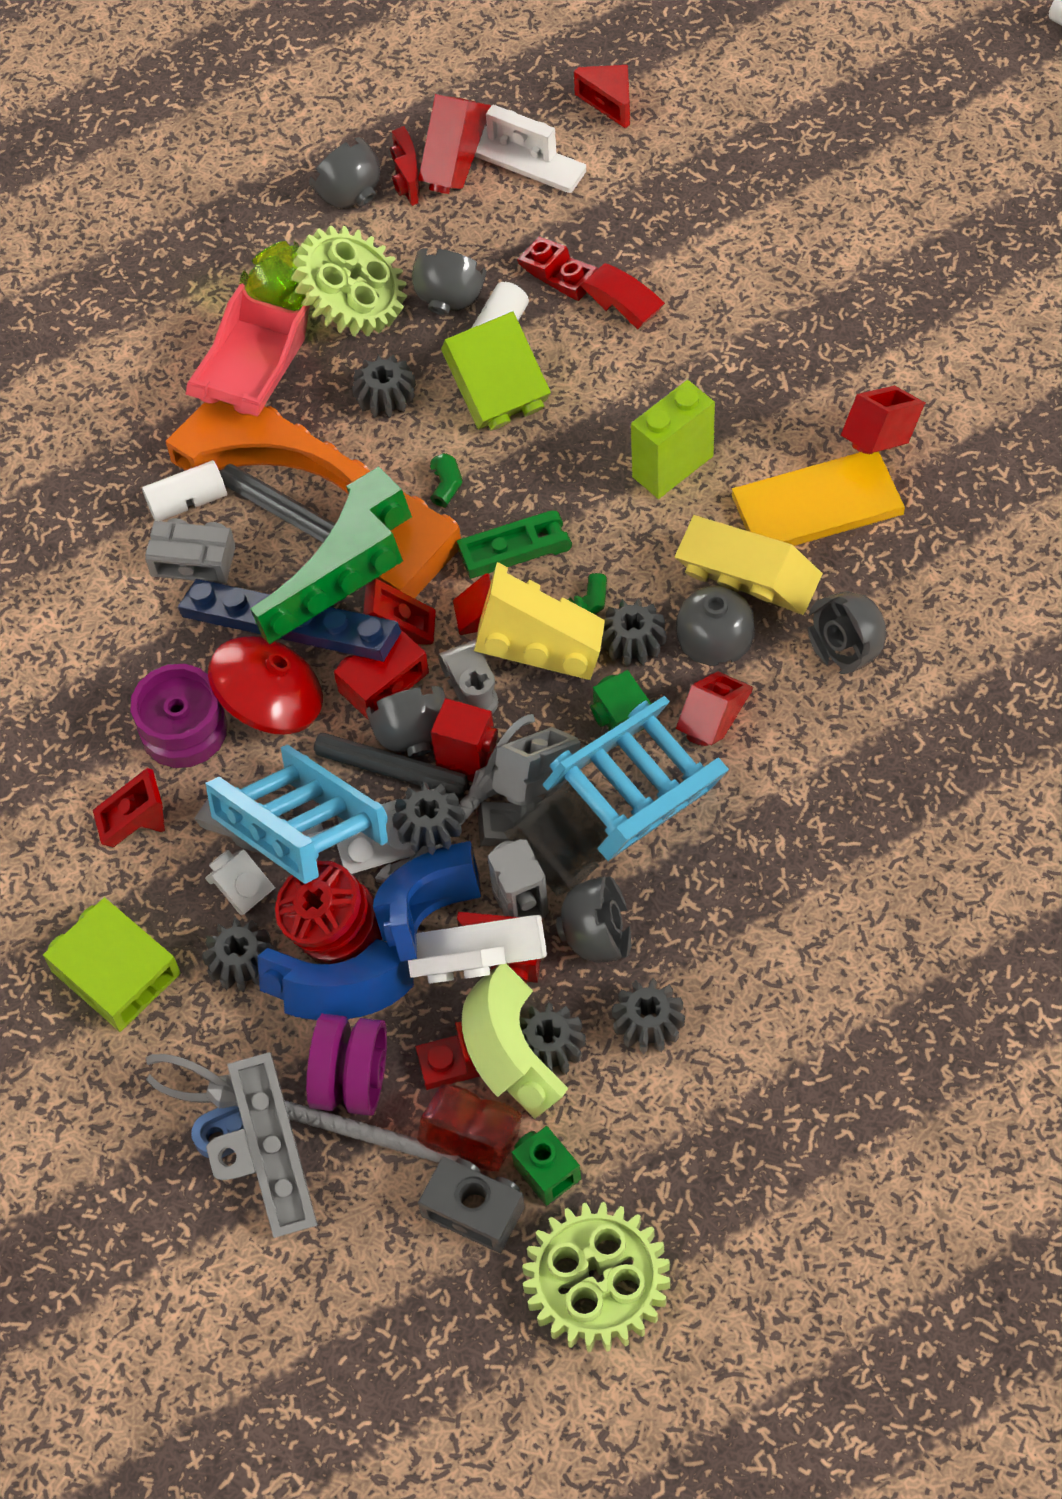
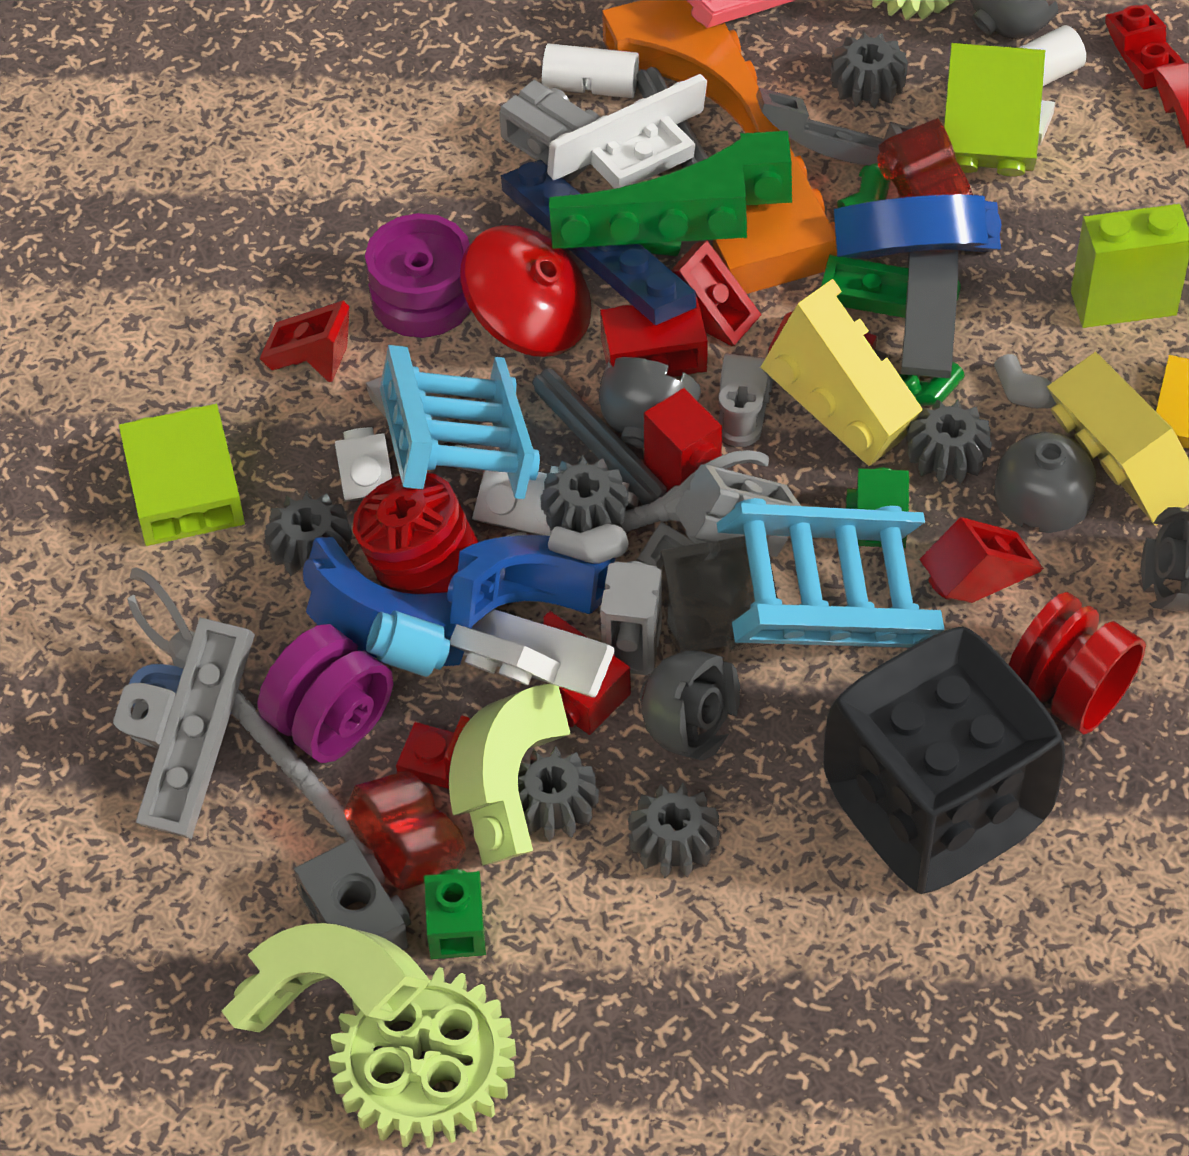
camera: 30 degrees right, 5 degrees down
(264, 530) = (635, 139): none -> white bracket
(385, 994) = (408, 643): none -> medium azure brick
(443, 435) = (791, 115): none -> dark grey slope
(458, 849) = (591, 545): none -> light grey arm
(483, 445) = (922, 162): none -> clear red brick
(506, 489) = (917, 225): none -> blue arch
(515, 1239) = (367, 966): none -> yellowish green arch
(556, 541) = (930, 313): none -> dark grey slope
(652, 565) = (1021, 387): none -> light grey arm
(800, 861) = (943, 758): none -> black piece
(829, 743) = (1077, 663): none -> red wheel

